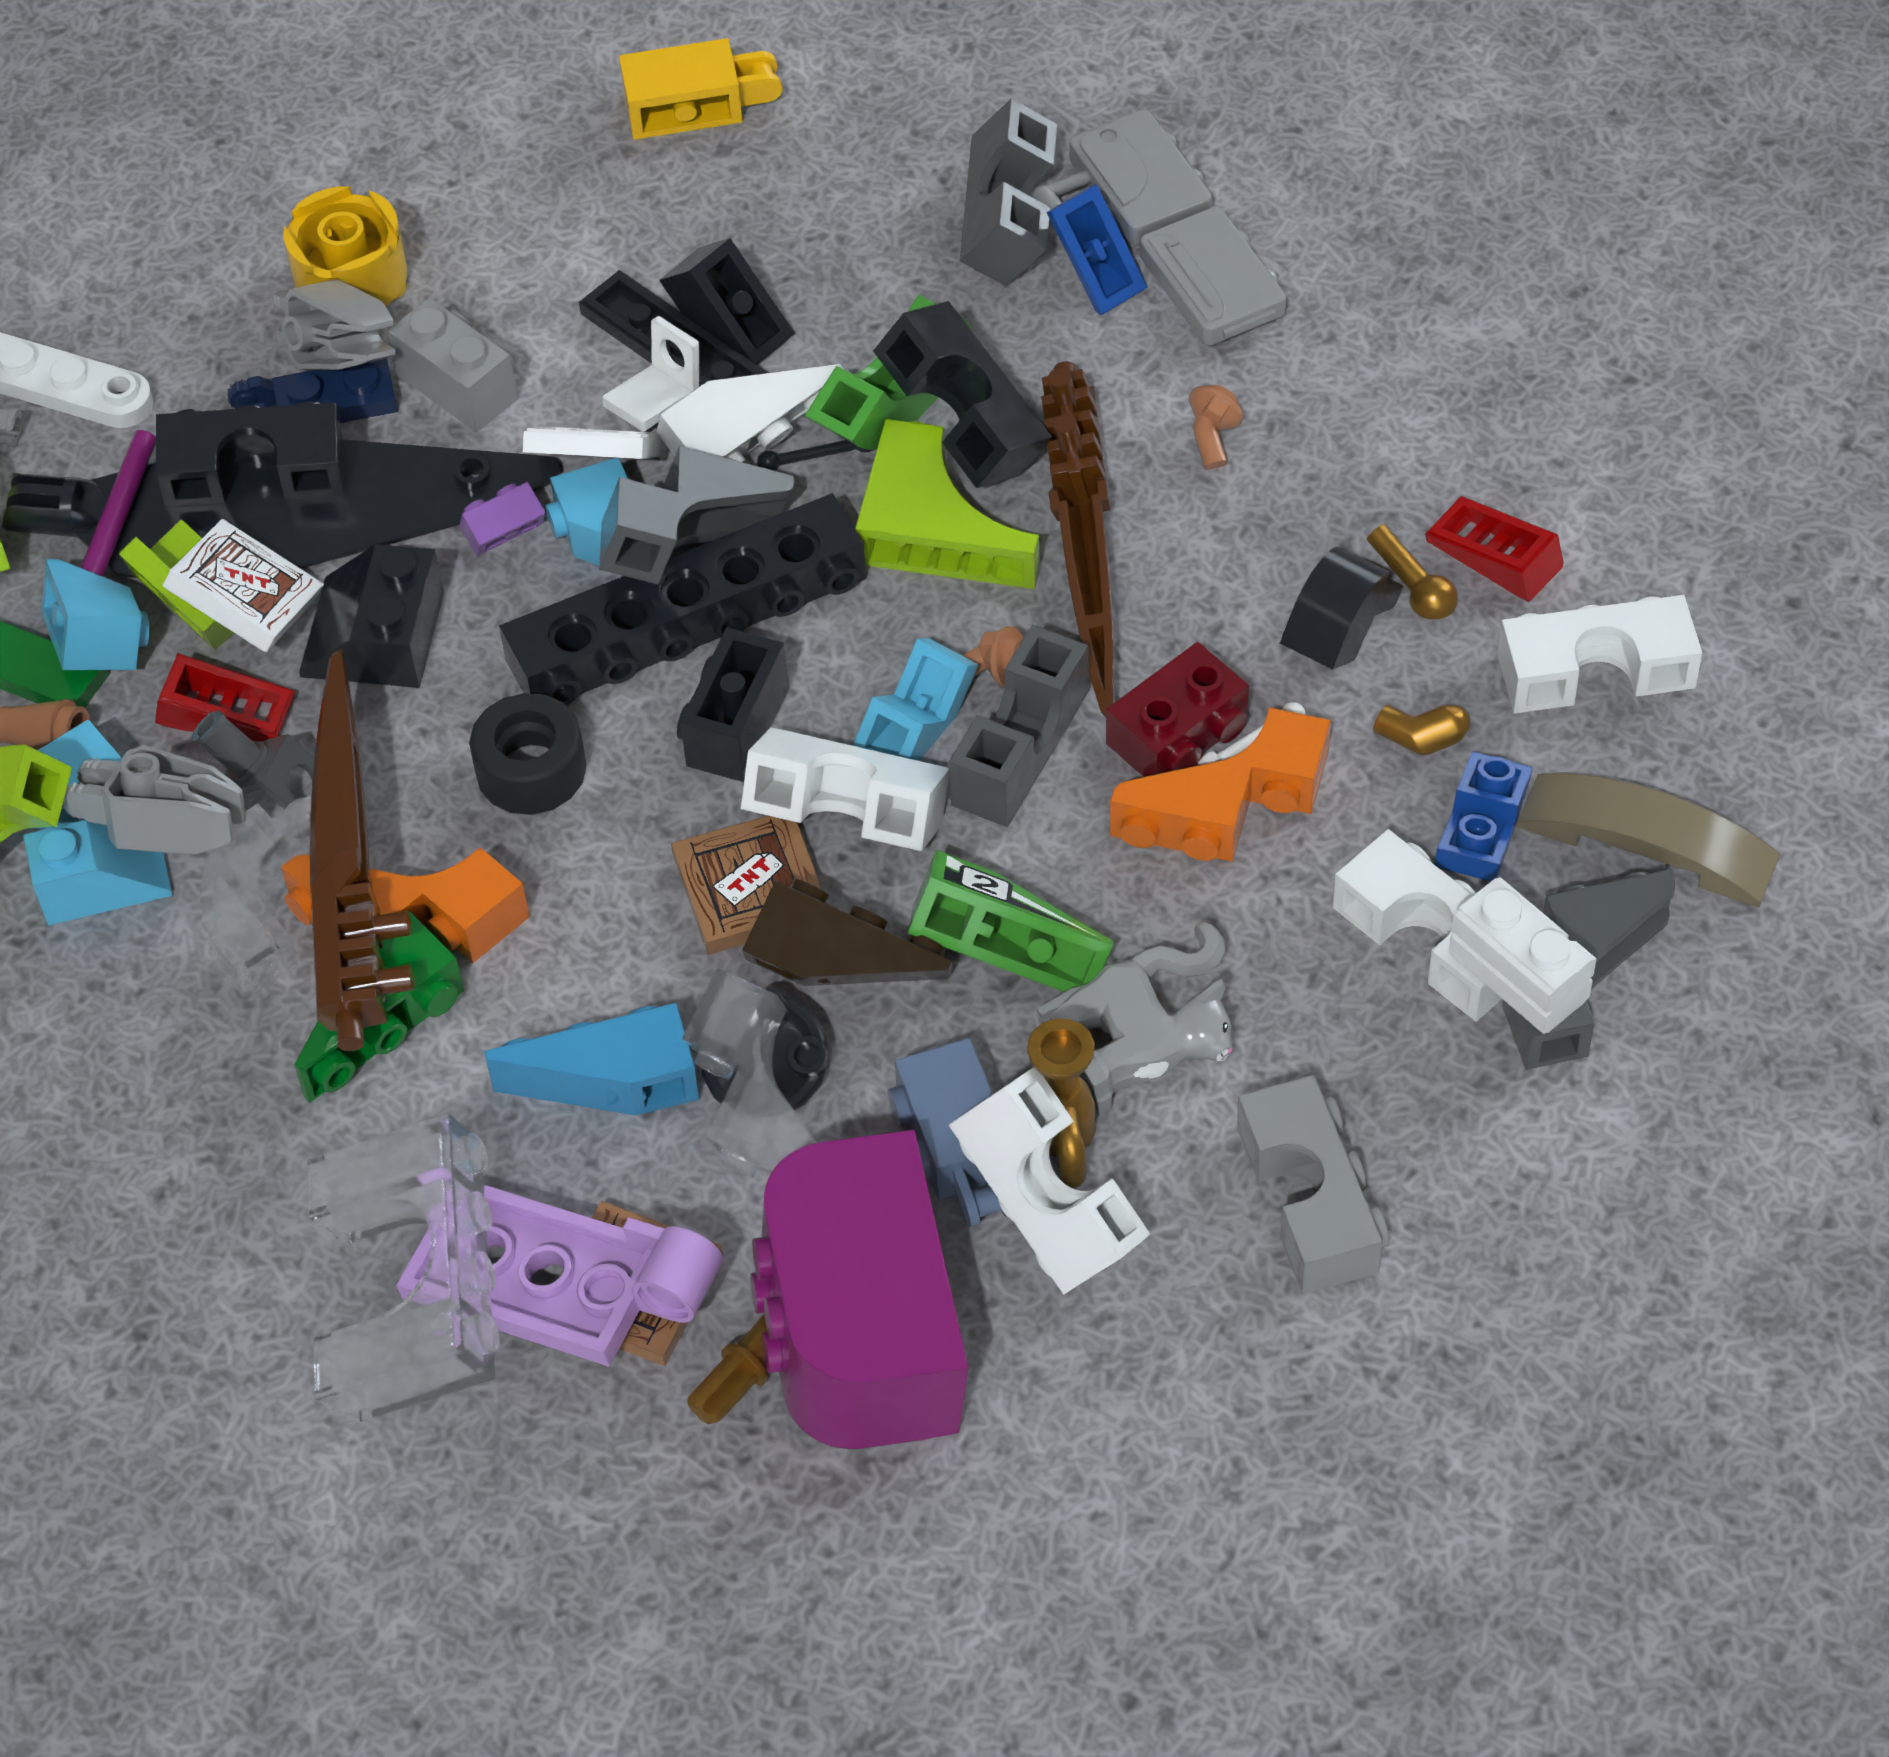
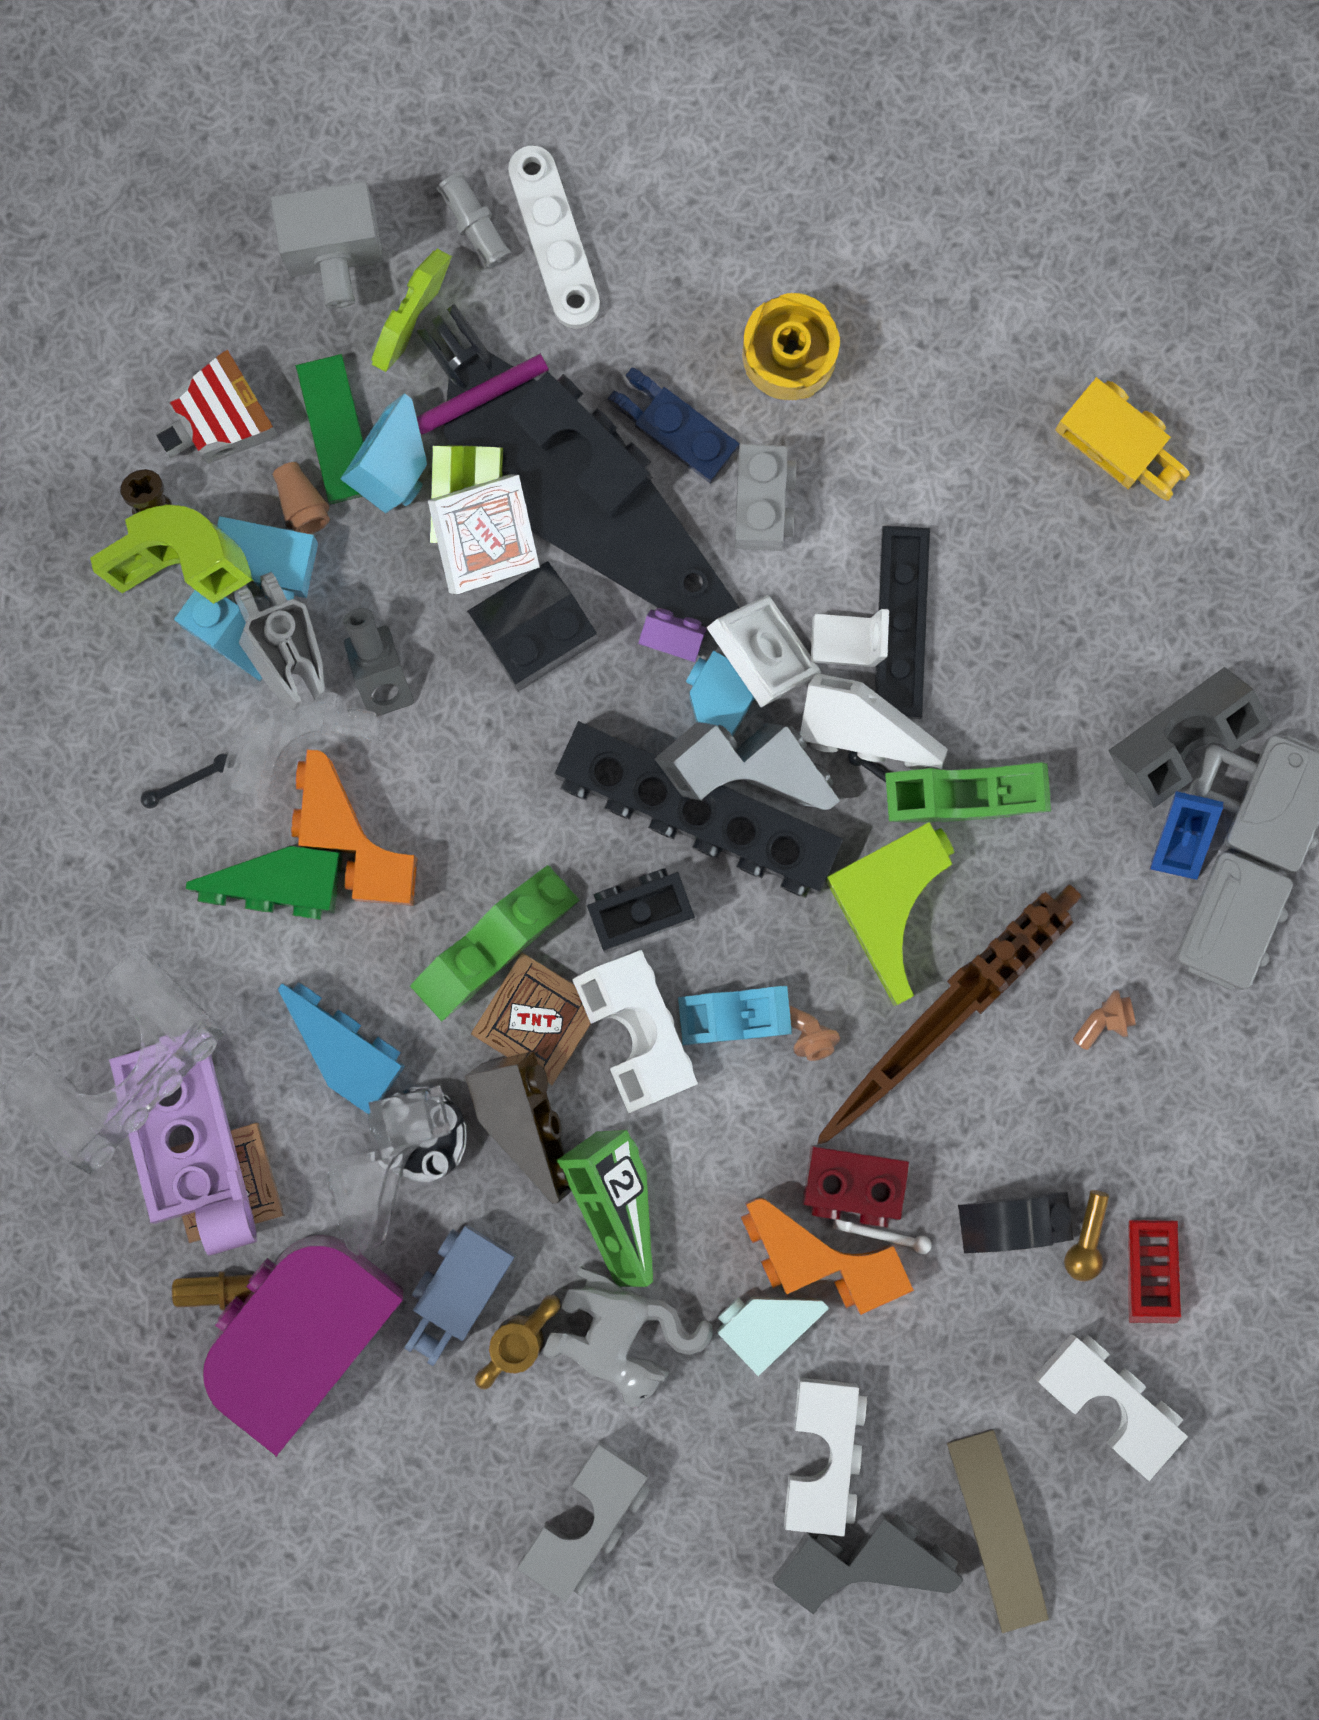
camera: 50 degrees right, 30 degrees up
(185, 713) = (389, 552): red slope -> none
(214, 983) = (151, 798): none -> black hinge
(332, 326) = (719, 402): light grey hinge -> none
(343, 906) = (321, 798): reddish brown piece -> none
(535, 783) = (506, 782): black tyre -> none
(636, 855) = (494, 942): none -> bright green arch
(727, 300) = (954, 626): black slope -> none
(941, 356) = (978, 899): black arch -> none
(1005, 755) = (764, 1099): dark grey arch -> none
(1066, 1227) = (436, 1418): white arch -> none
(1253, 883) = (767, 1326): none -> light aqua slope
(1424, 732) = (968, 1340): pearl gold arm -> none
(1483, 816) = (933, 1421): blue slope -> none
(1521, 955) = (813, 1550): white brick -> none

